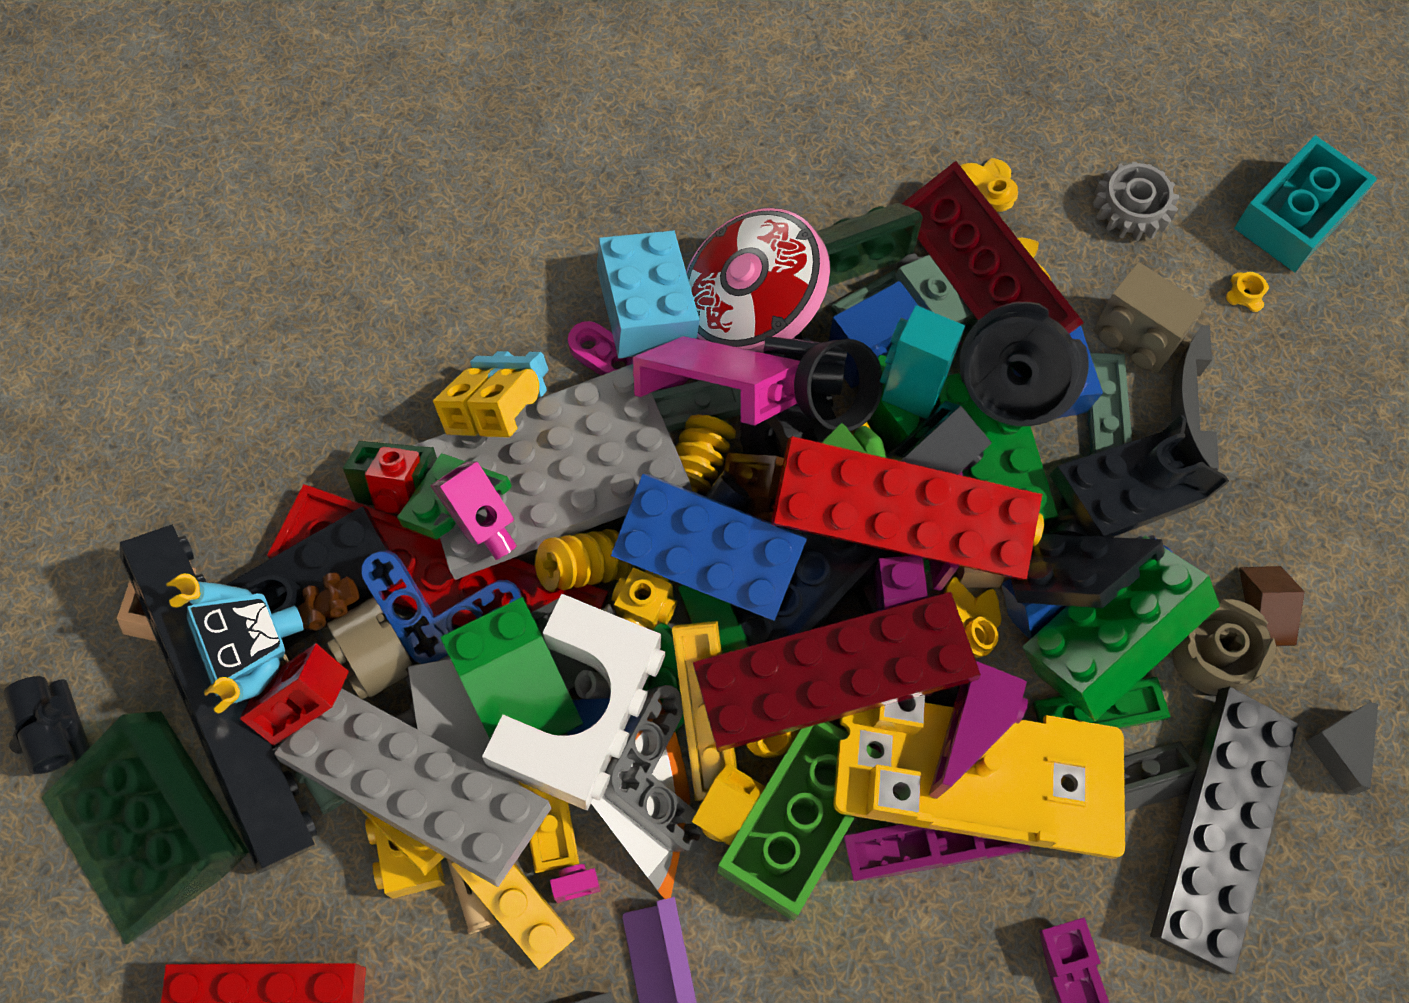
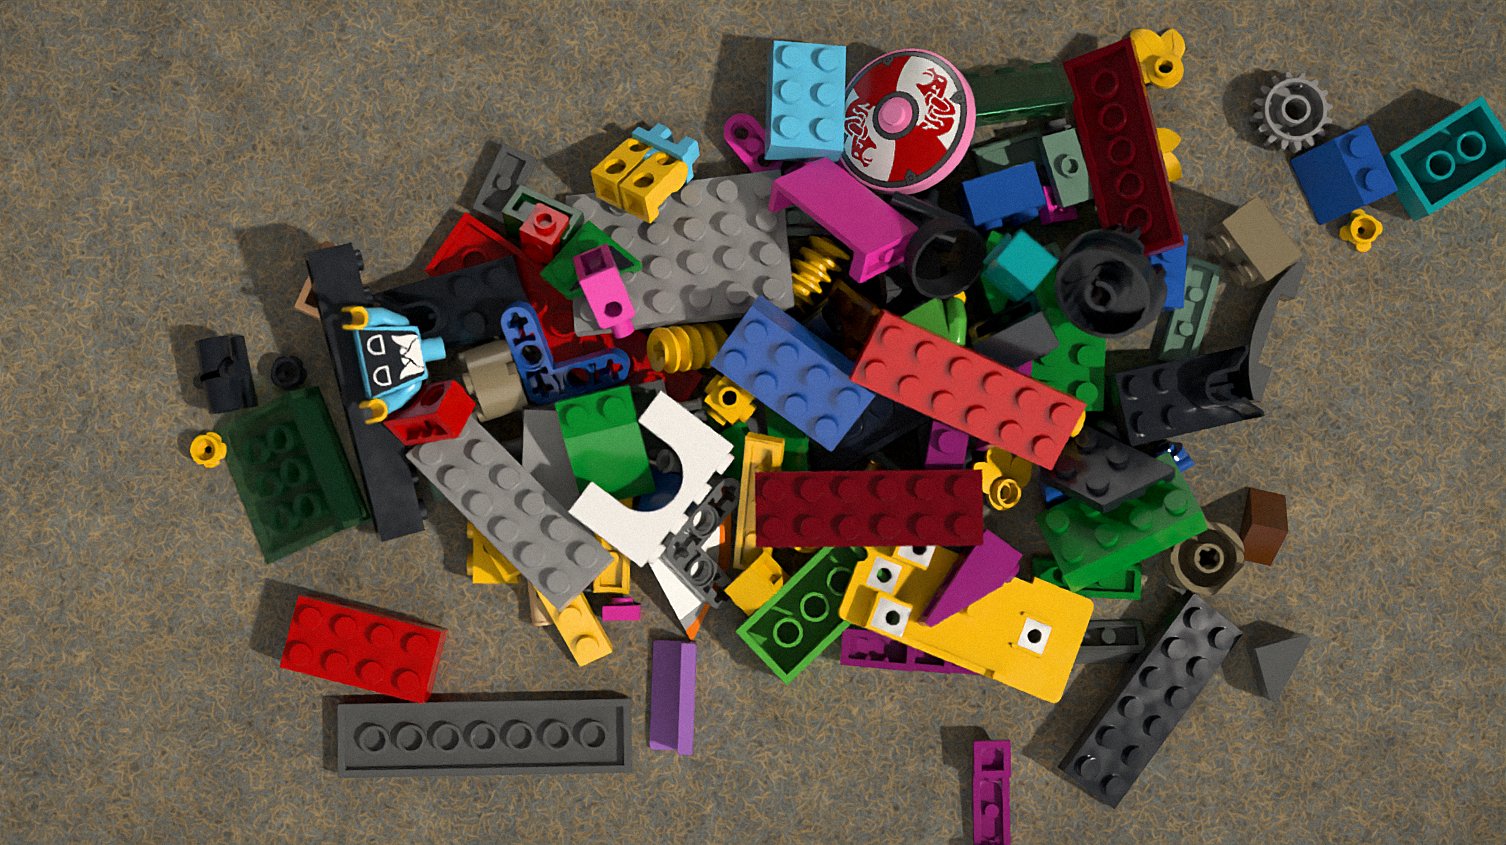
camera: 15 degrees right, 20 degrees up
(24, 820) = (199, 447): none -> yellow plate
(117, 698) = (279, 369): none -> black plate
(328, 603) = (468, 336): reddish brown piece -> none
(341, 436) = (505, 176): none -> dark grey plate
(1211, 242) = (1343, 175): none -> blue slope

